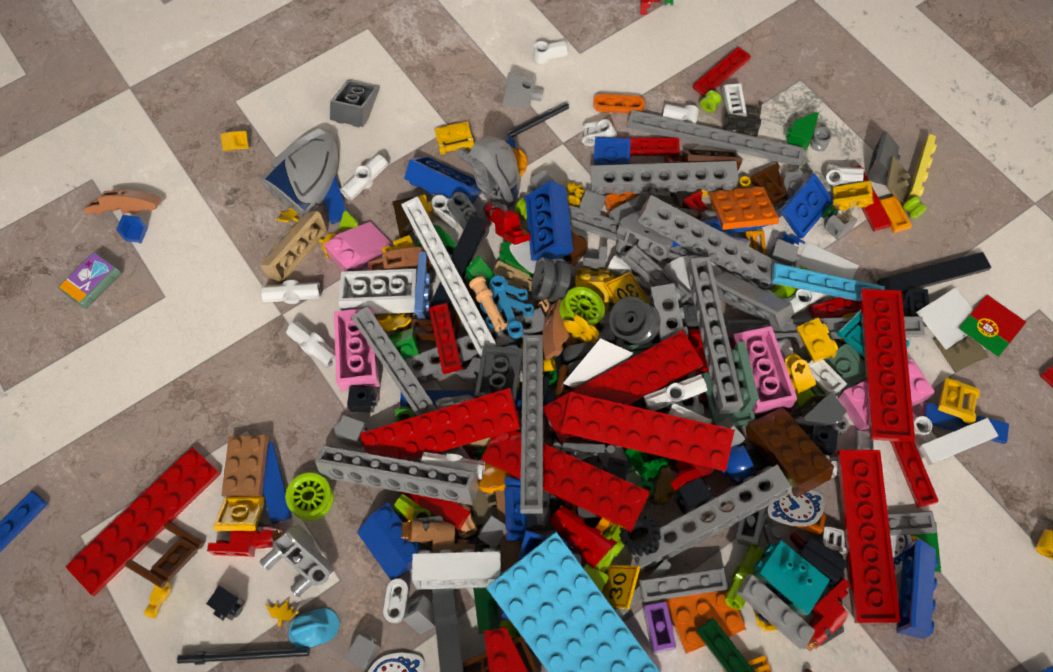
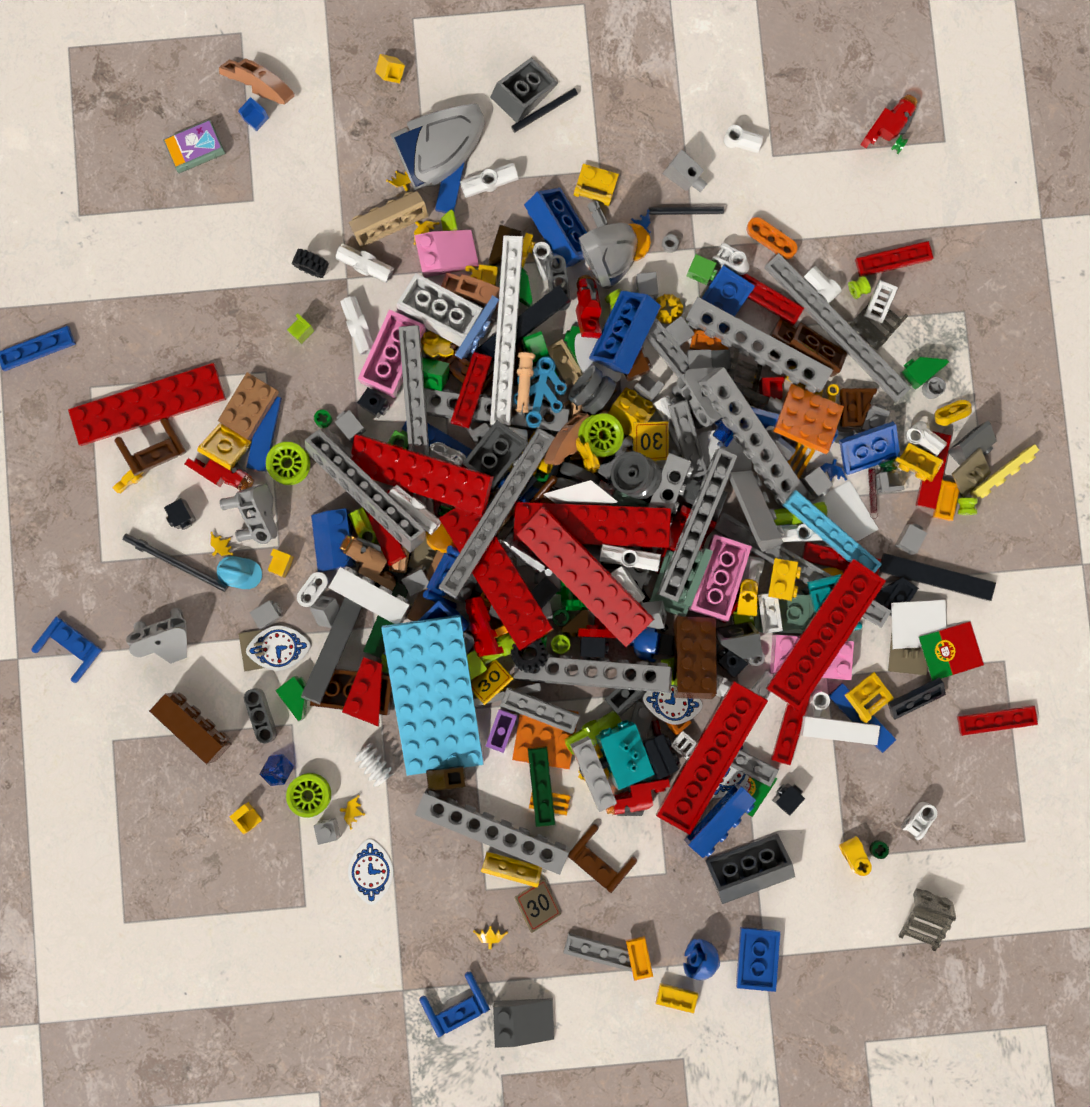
camera: 25 degrees right, 20 degrees up
(242, 314) = (310, 263): none -> black tyre
(261, 374) = (300, 329): none -> lime panel
(320, 434) = (320, 424): none -> green bush
(350, 593) = (280, 563): none -> yellow panel
(379, 109) = (544, 110): none -> black bar
(540, 143) = (670, 237): none -> light grey axle
(579, 152) = (702, 270): none -> bright green brick
(661, 510) = (560, 644): none -> lime wheel
(681, 254) = (722, 434): none -> clear blue panel
(831, 238) = (872, 493): none -> dark red piece
(849, 148) = (953, 412): none -> yellow plate
(891, 256) = (911, 538): none -> light grey brick
(961, 532) = (788, 798): none -> black brick
(978, 621) = (750, 868): none -> dark grey slope
(997, 378) = (916, 698): none -> black plate

